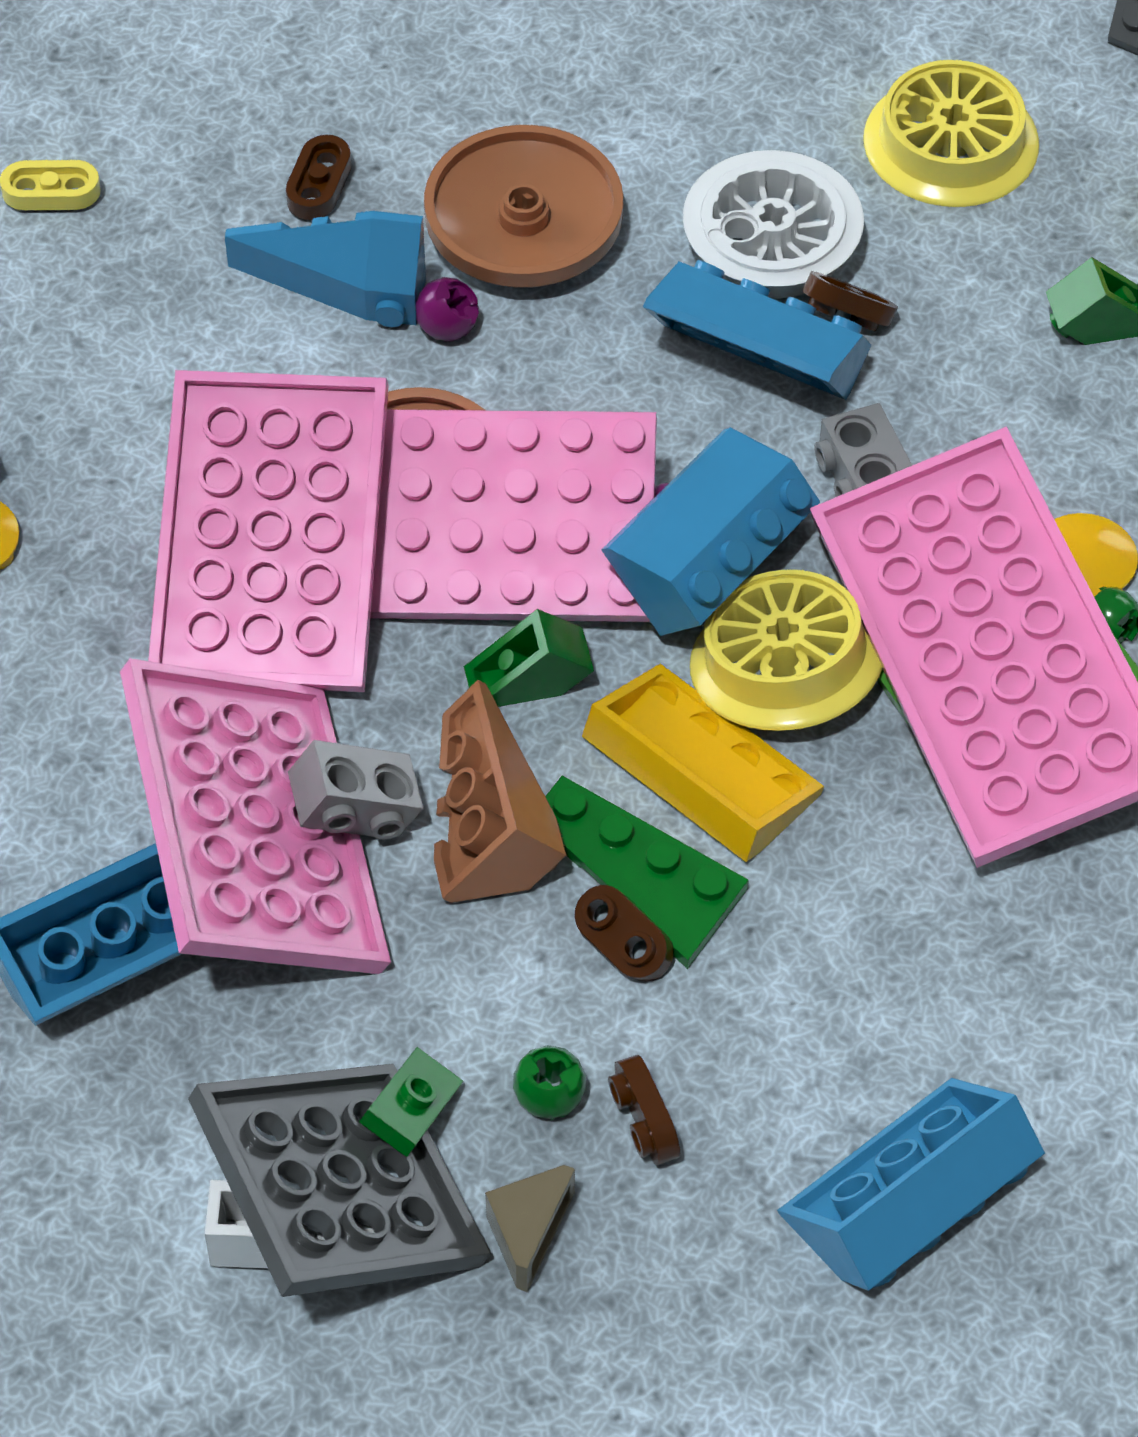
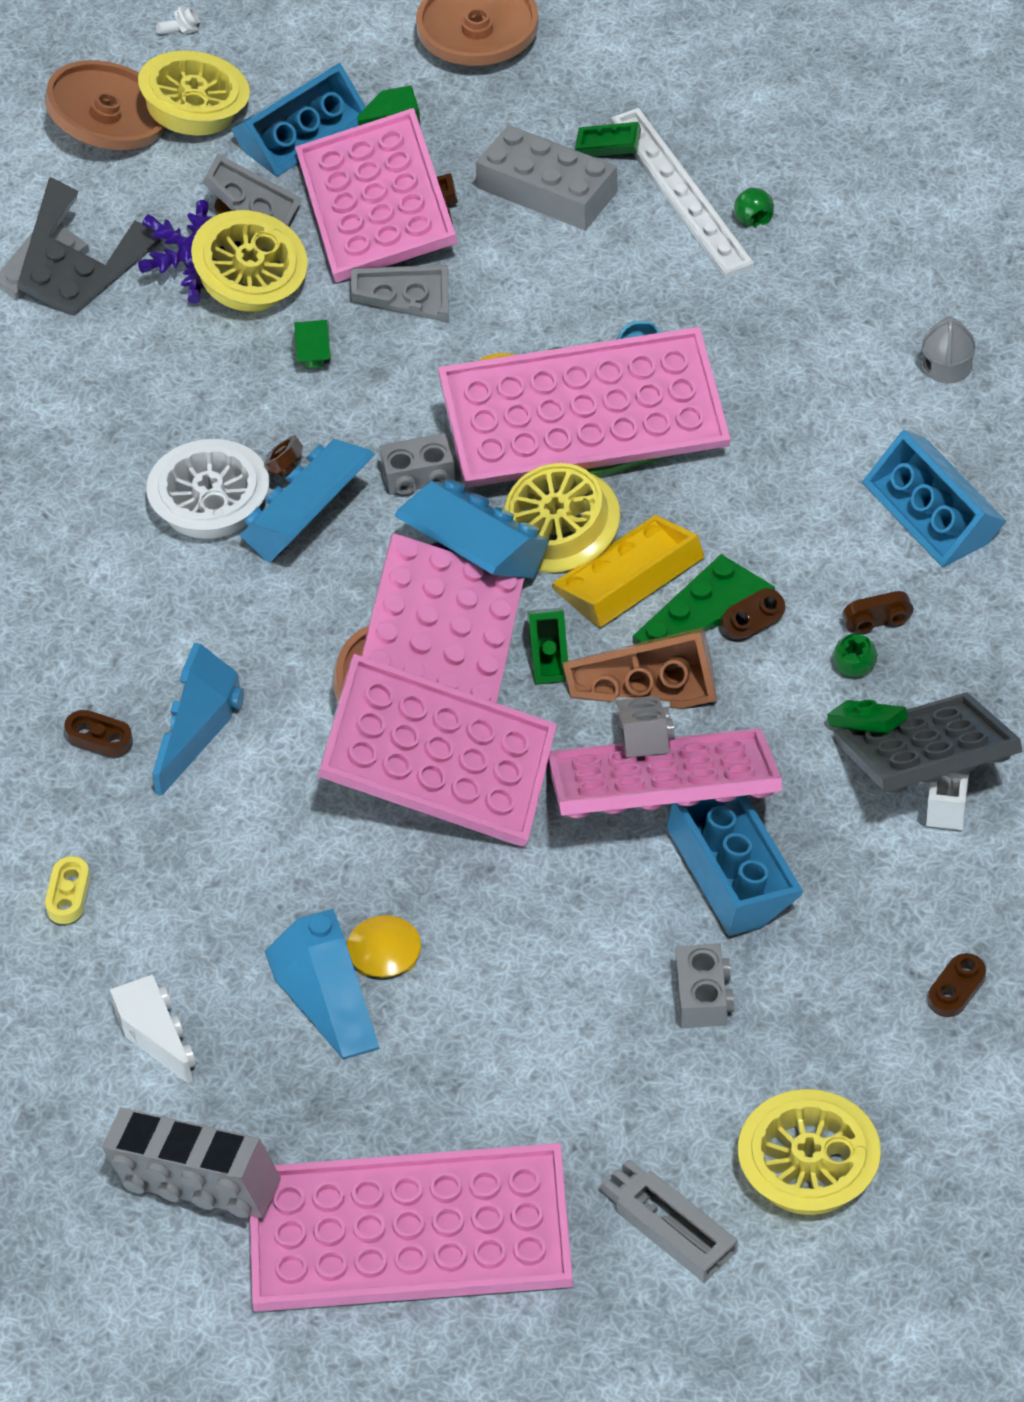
camera: 80 degrees left, 5 degrees down
(447, 309) = (246, 663): magenta piece -> none
(523, 205) = (159, 610): nougat dish -> none
(527, 1218) = (951, 670): dark tan slope -> none
(960, 113) = (132, 387): light yellow piece -> none

